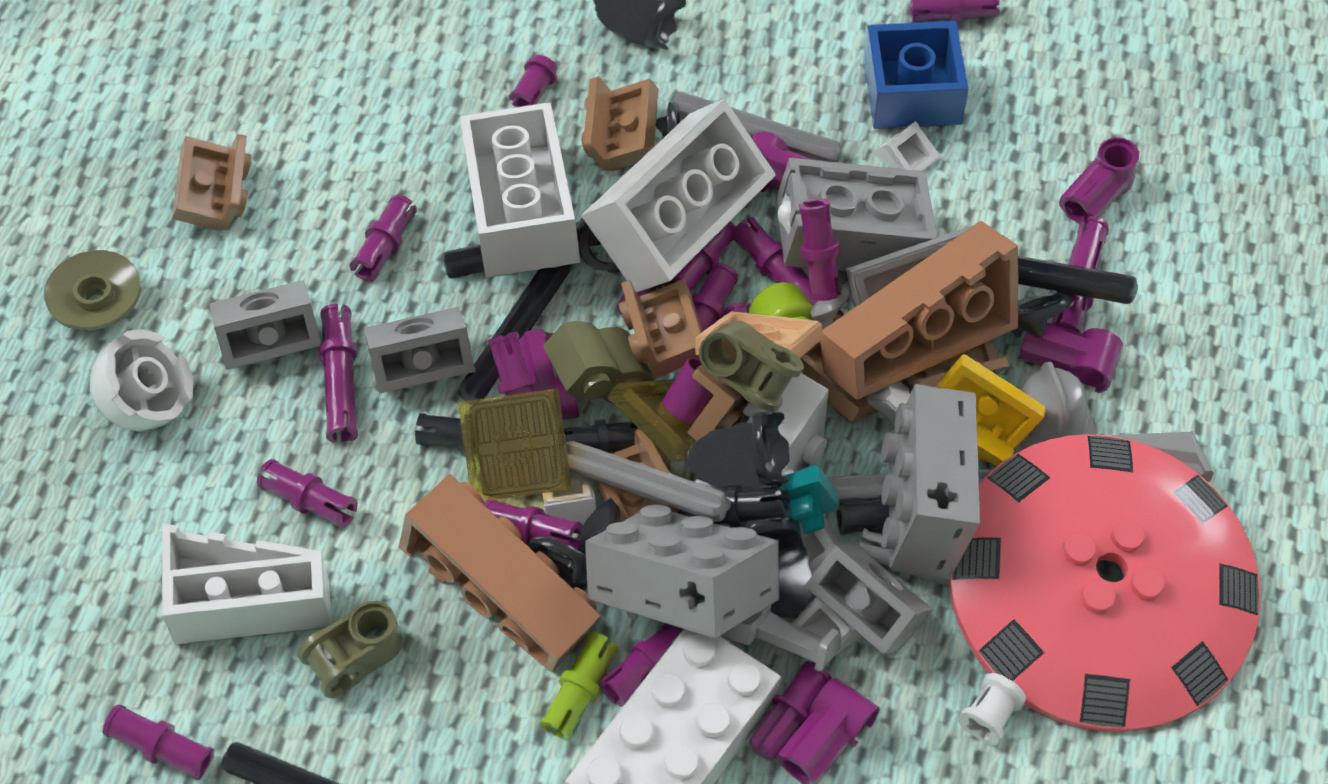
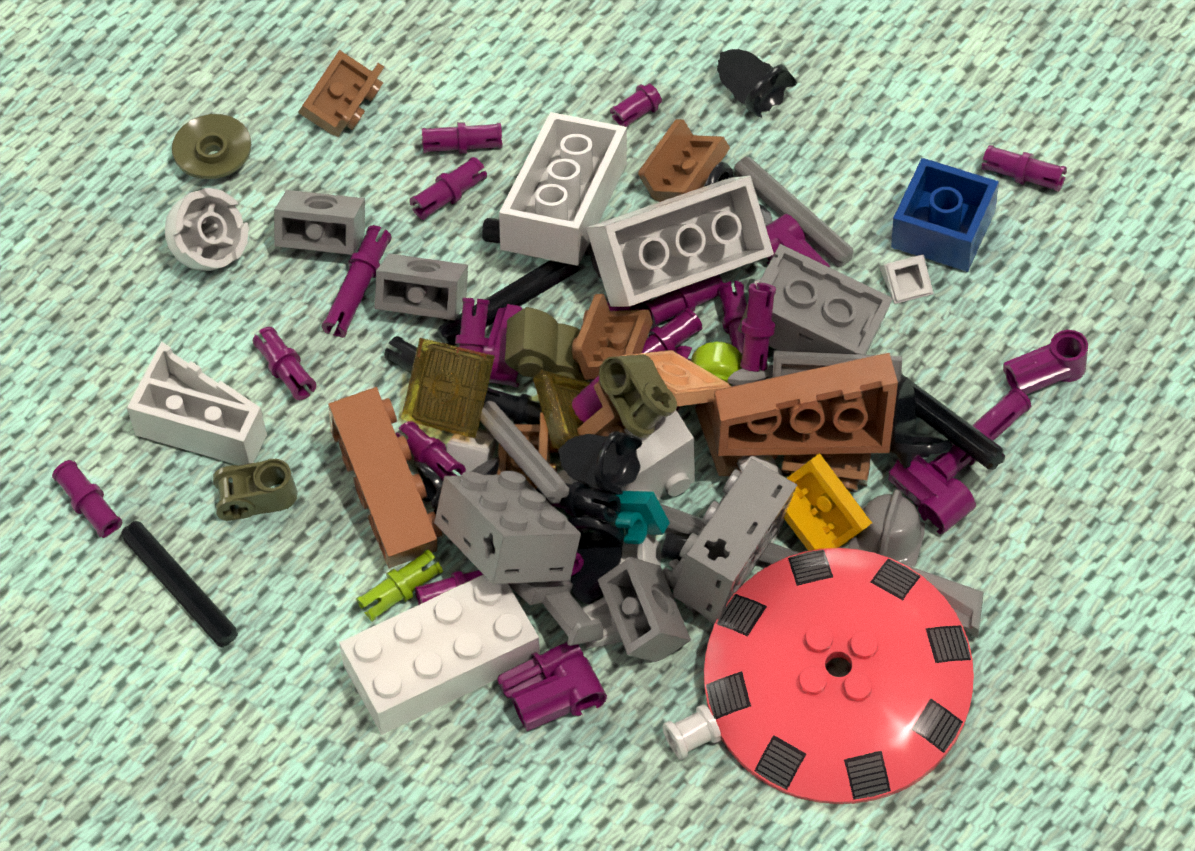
camera: 30 degrees right, 0 degrees up
(367, 181) = (462, 138): none -> magenta pin

